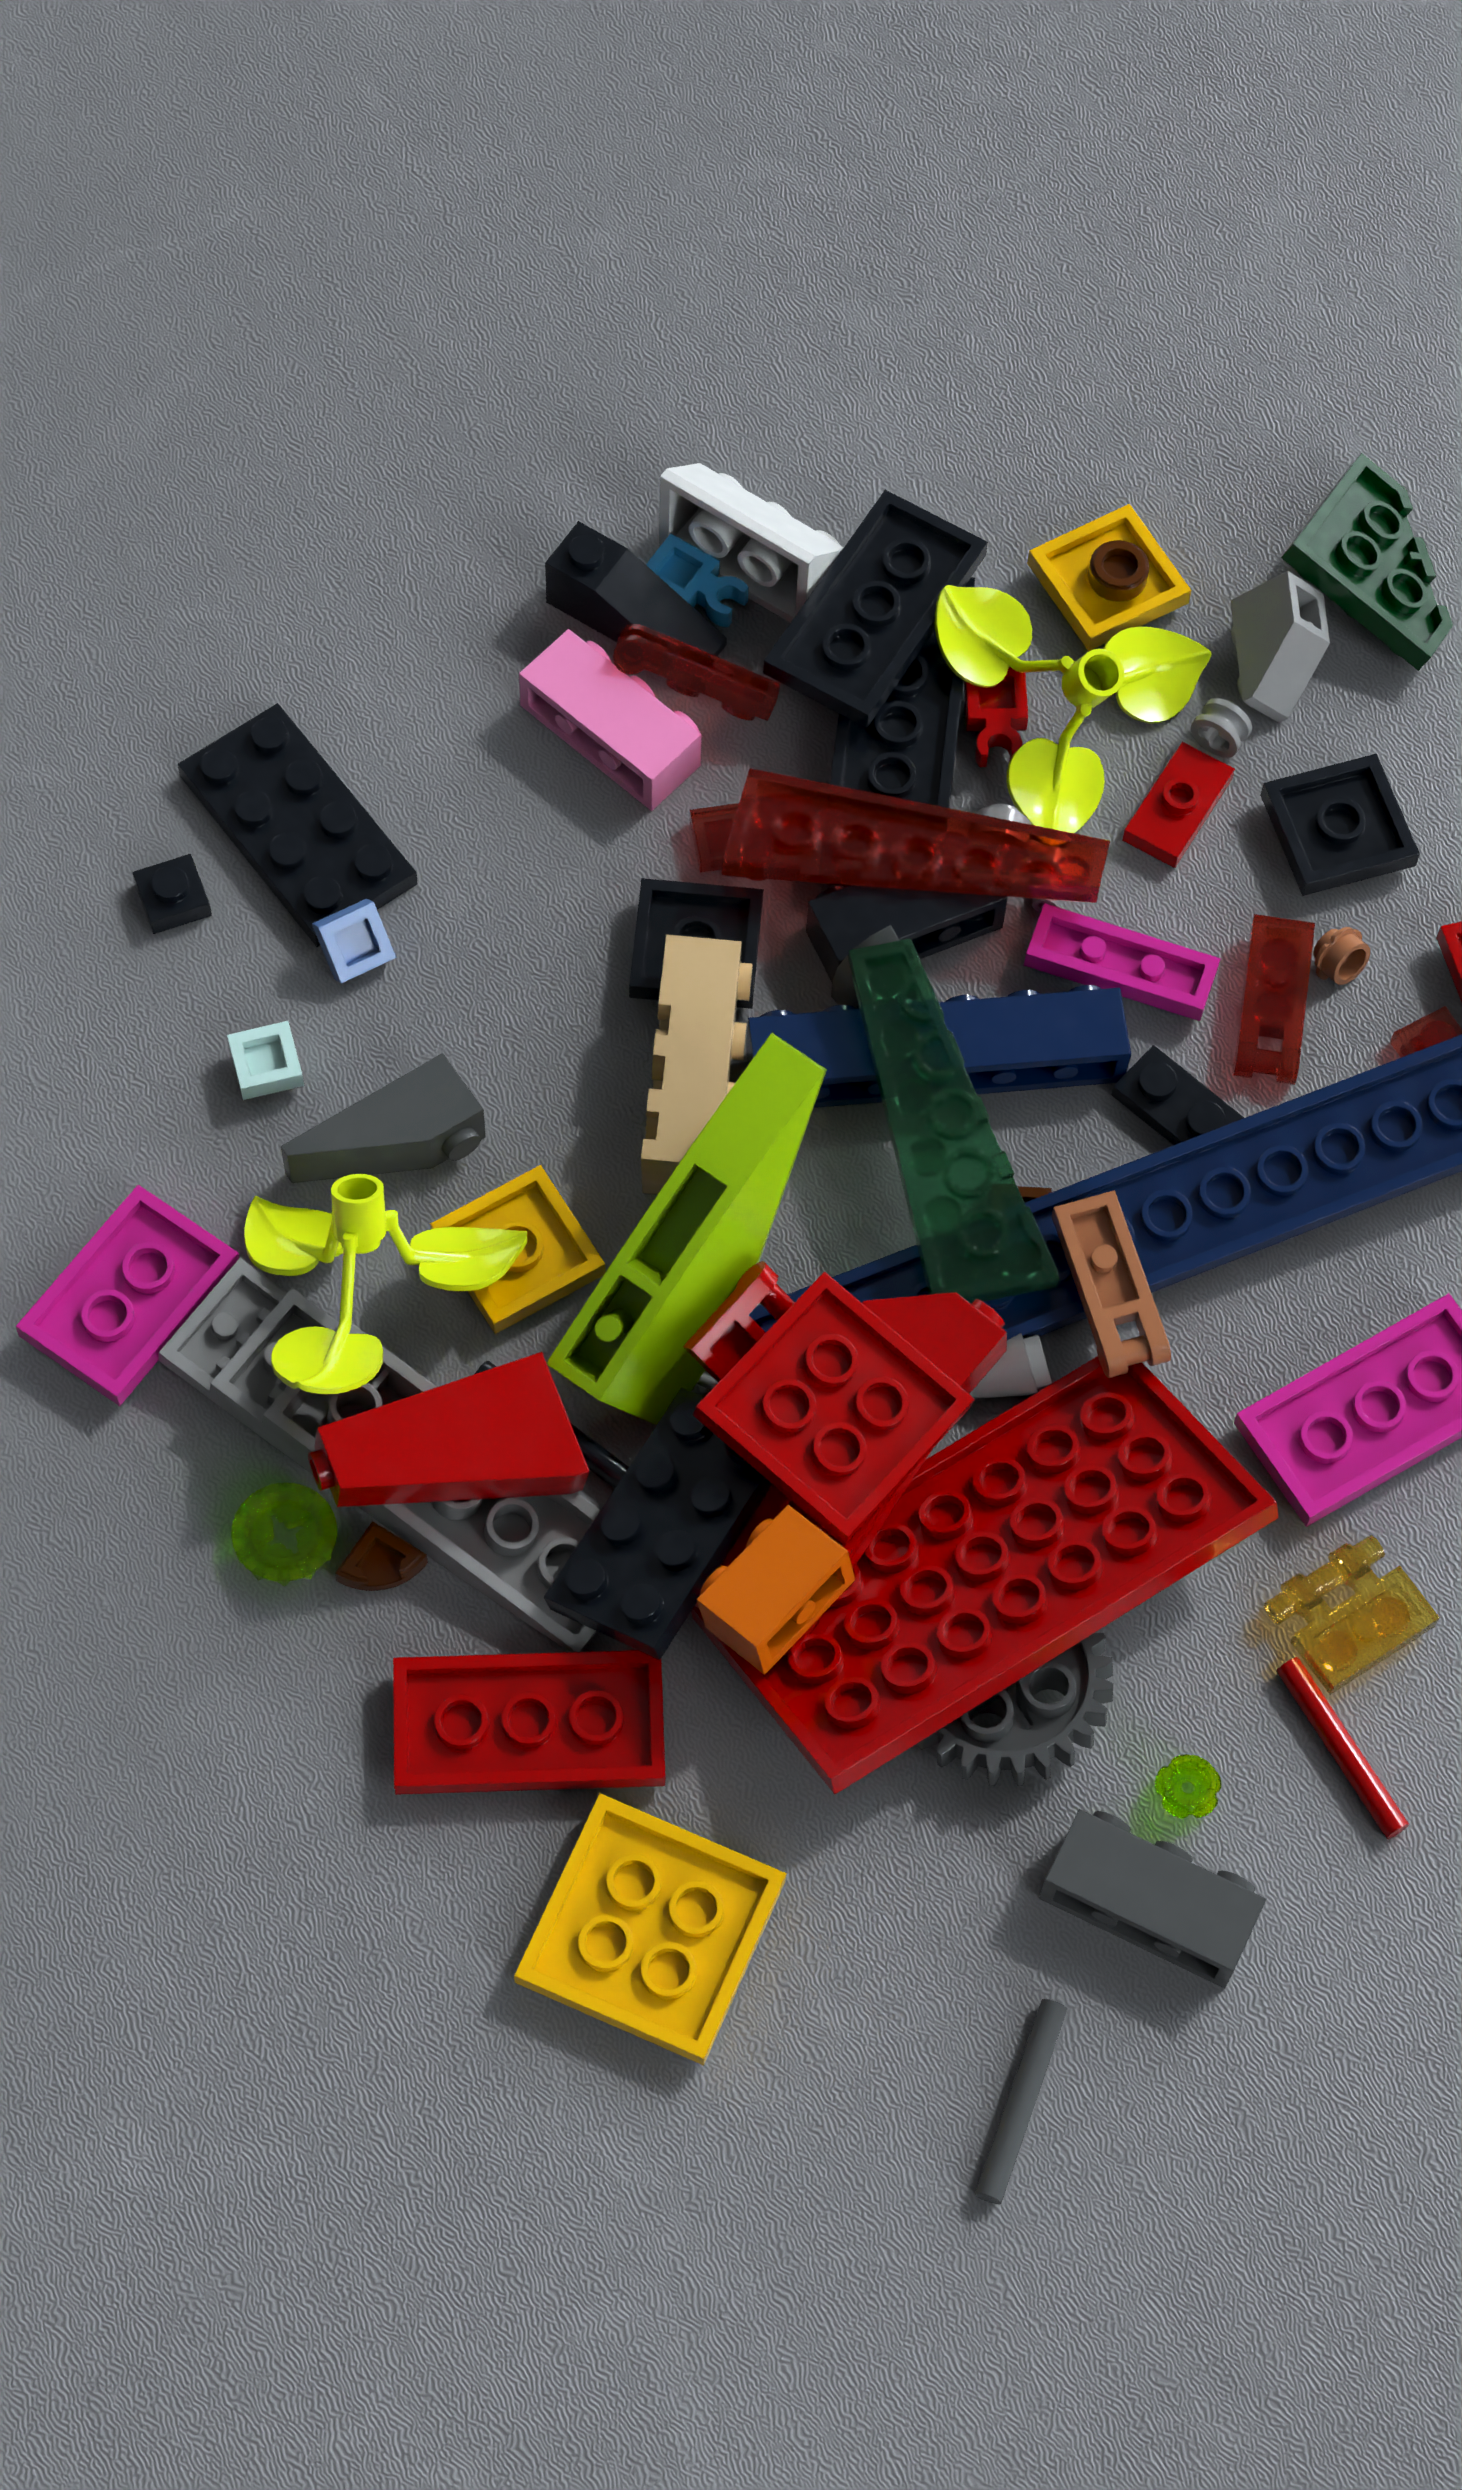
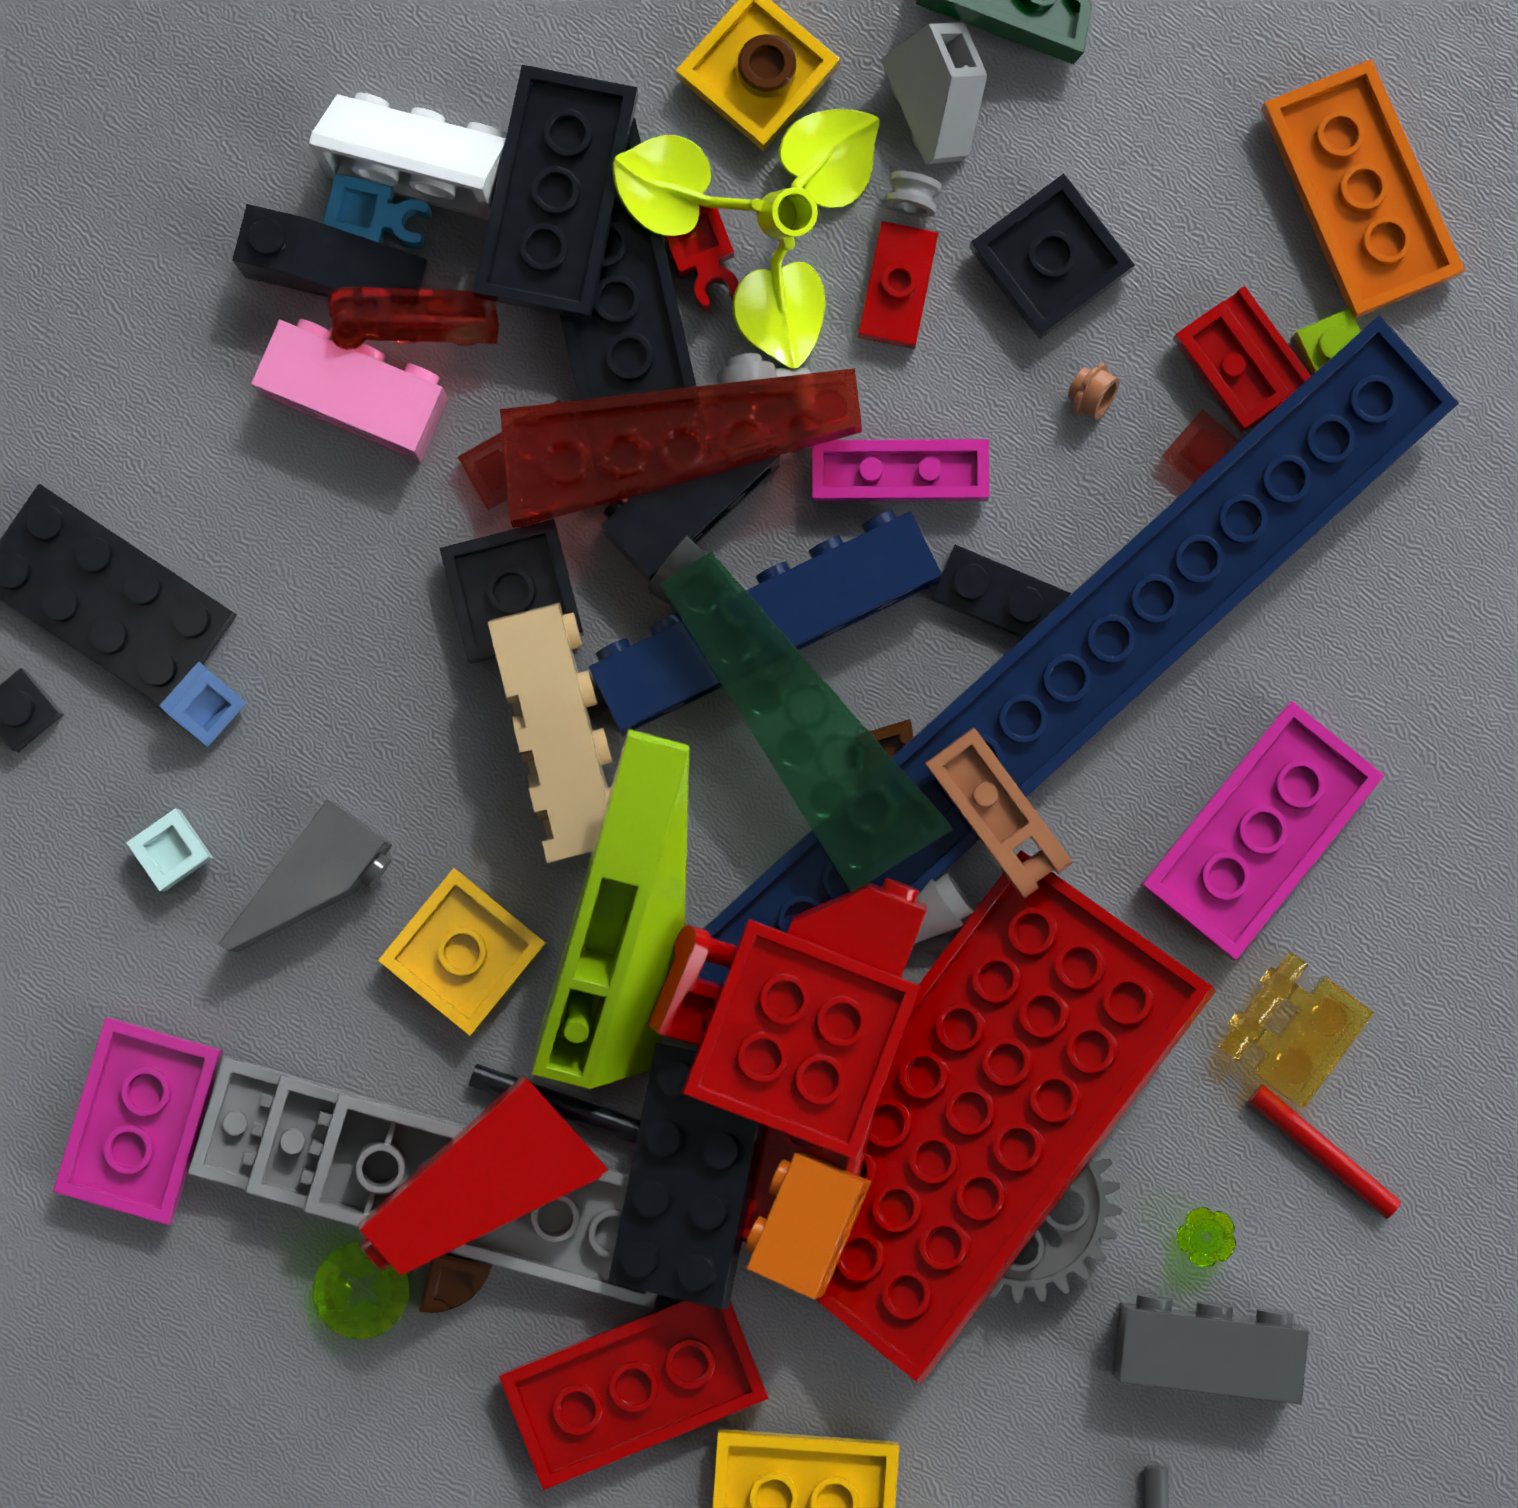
camera: 15 degrees left, 20 degrees up
(296, 1239) = (262, 1013): neon yellow plant -> none
(1274, 997) = (1047, 456): clear red plate -> none

